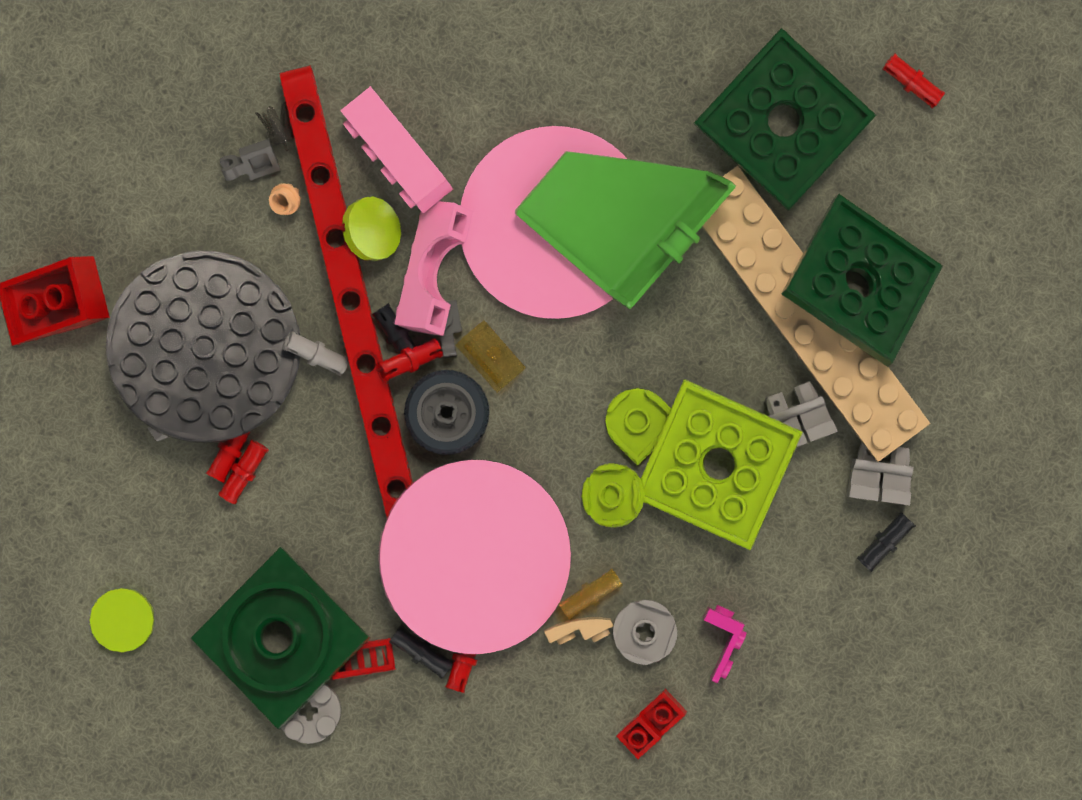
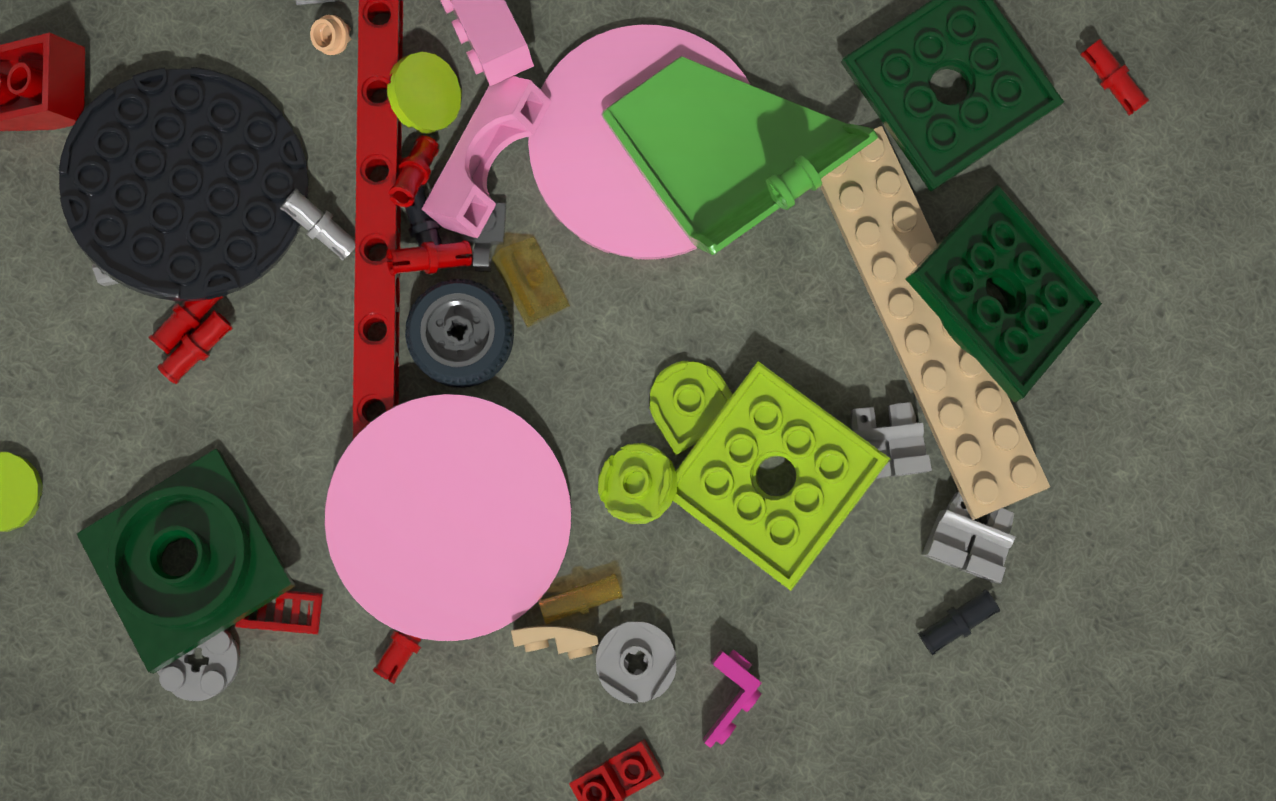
camera: 10 degrees right, 5 degrees down
(379, 293) = (414, 171): none -> red pin
(421, 652) = (354, 619): black pin -> none

